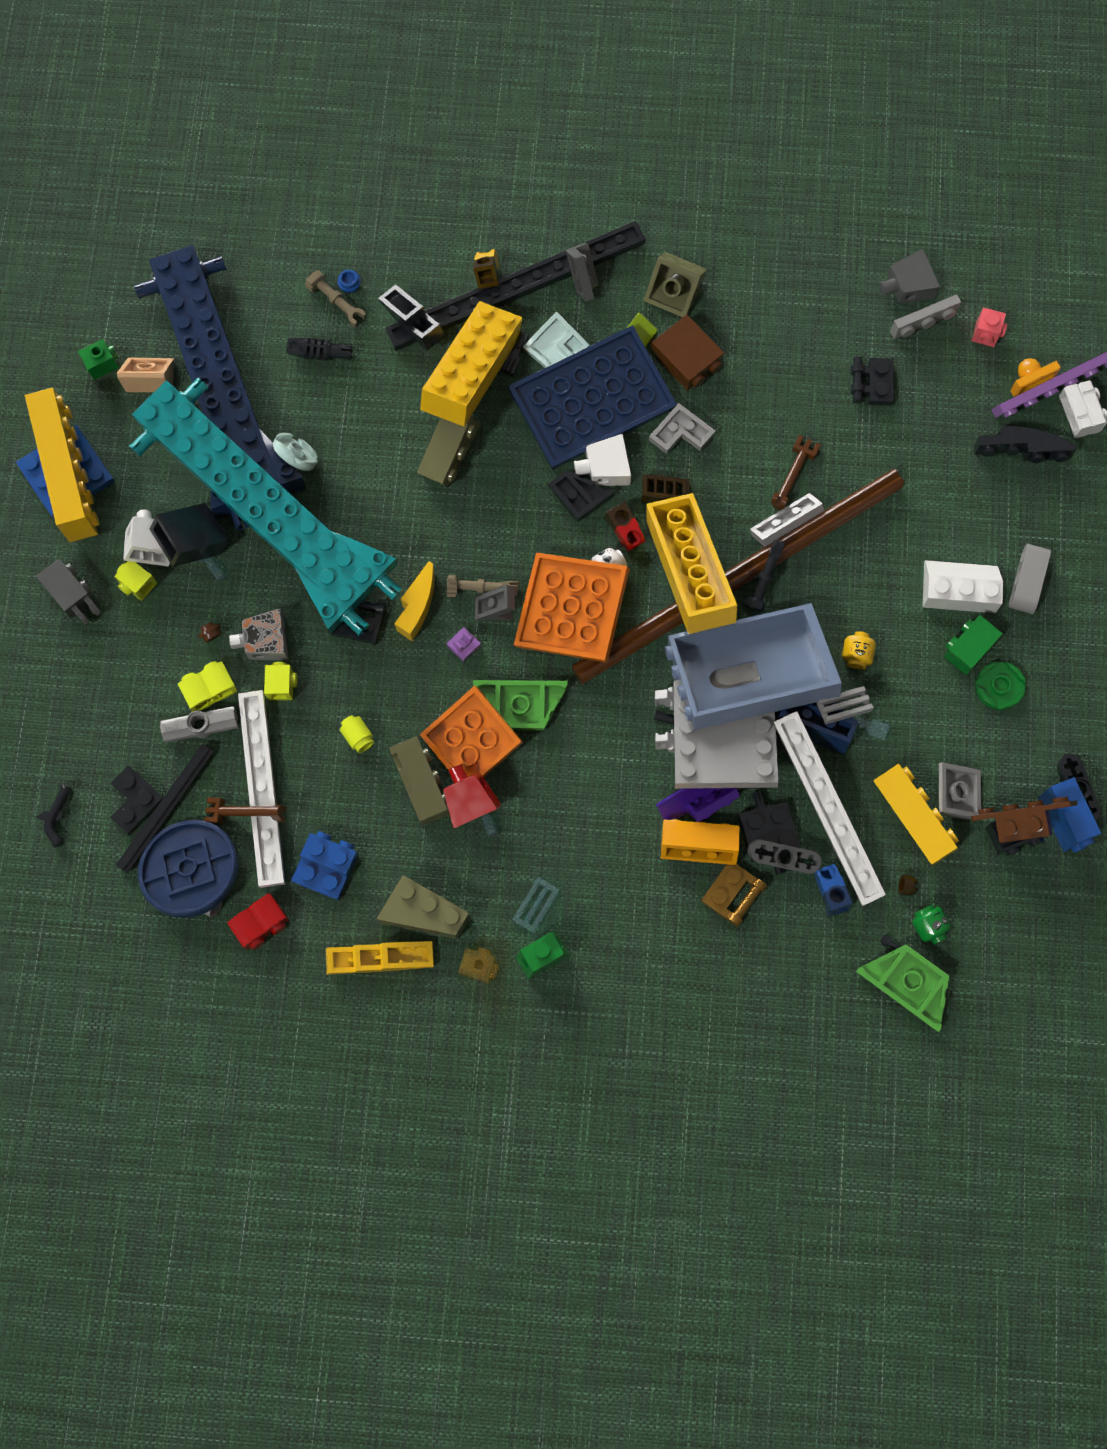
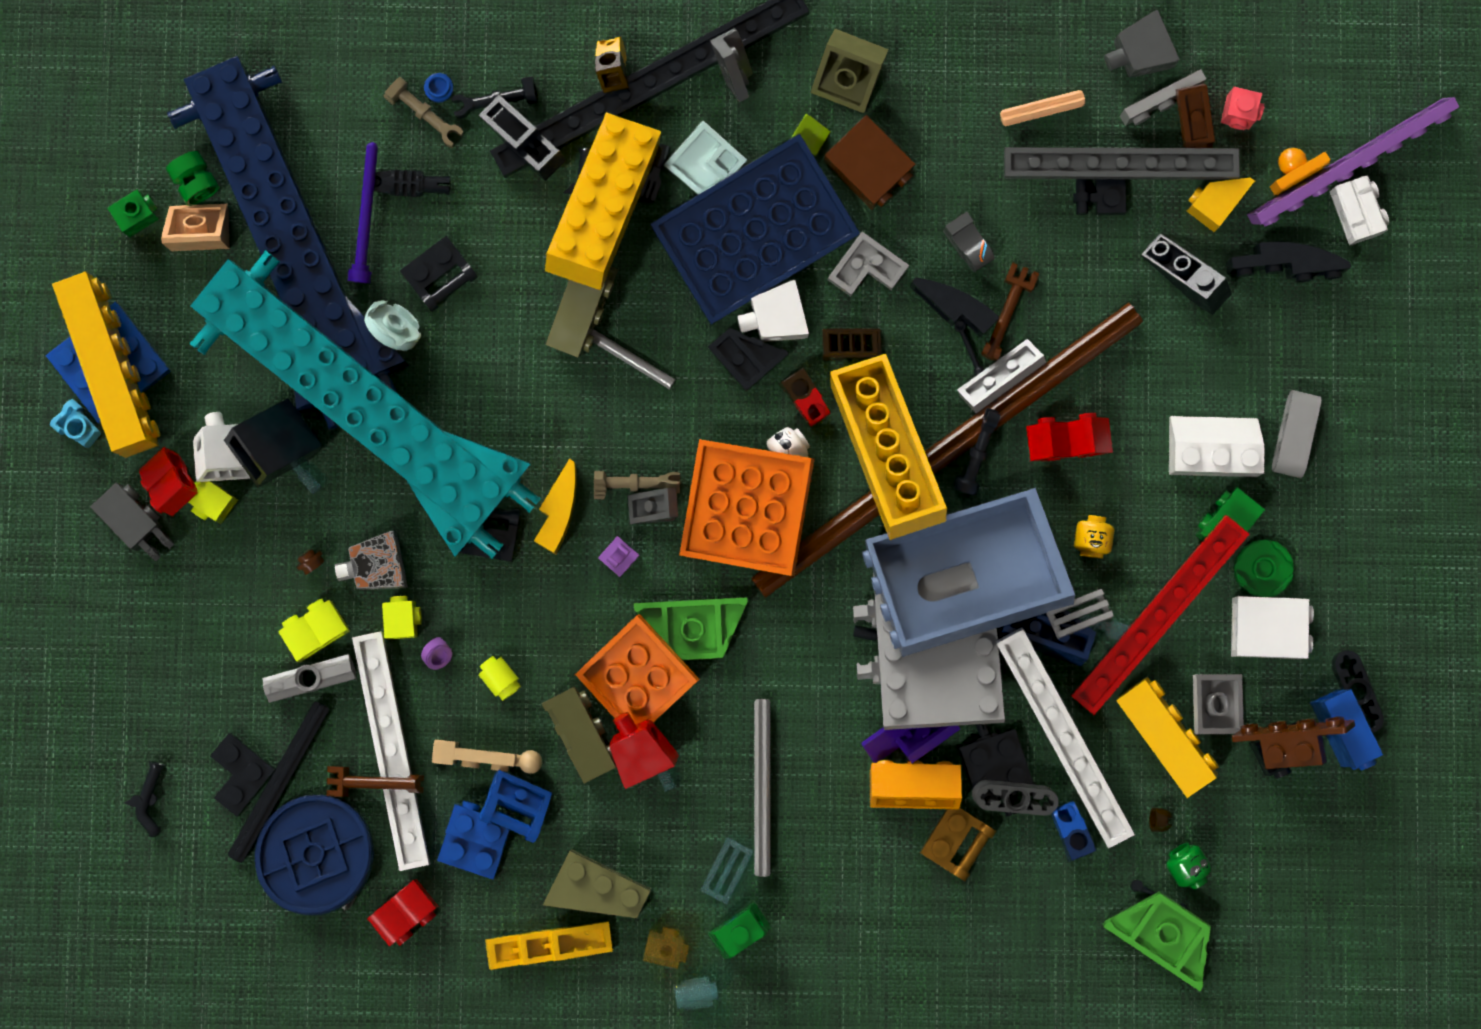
camera: 10 degrees left, 10 degrees up
(32, 515) = (75, 424): none -> medium azure plate
(100, 561) = (167, 482): none -> red brick
(148, 335) = (190, 174): none -> green wheel
(273, 412) = (360, 270): none -> dark purple piece
(306, 711) = (436, 653): none -> medium lavender tile
(308, 792) = (448, 753): none -> tan plate
(332, 413) = (433, 266): none -> black plate
(364, 831) = (519, 797): none -> blue plate
(419, 288) = (527, 92): none -> black piece
(487, 493) = (633, 360): none -> light grey bar
(502, 1006) = (695, 993): none -> clear light blue brick
(570, 838) = (762, 787): none -> light grey axle
(751, 463) = (955, 305): none -> black slope
(754, 482) = (960, 327): none -> black hinge
(764, 416) = (968, 242): none -> dark grey leg
(828, 321) = (1042, 108): none -> light nougat axle
(851, 570) = (1079, 438): none -> red brick
(890, 361) = (1121, 163): none -> dark grey plate
(912, 713) = (1160, 614): none -> red plate
(943, 450) = (1188, 274): none -> black slope
(951, 334) = (1195, 116): none -> reddish brown hinge
(968, 395) = (1217, 201): none -> yellow slope
(1006, 731) = (1271, 627): none -> white brick

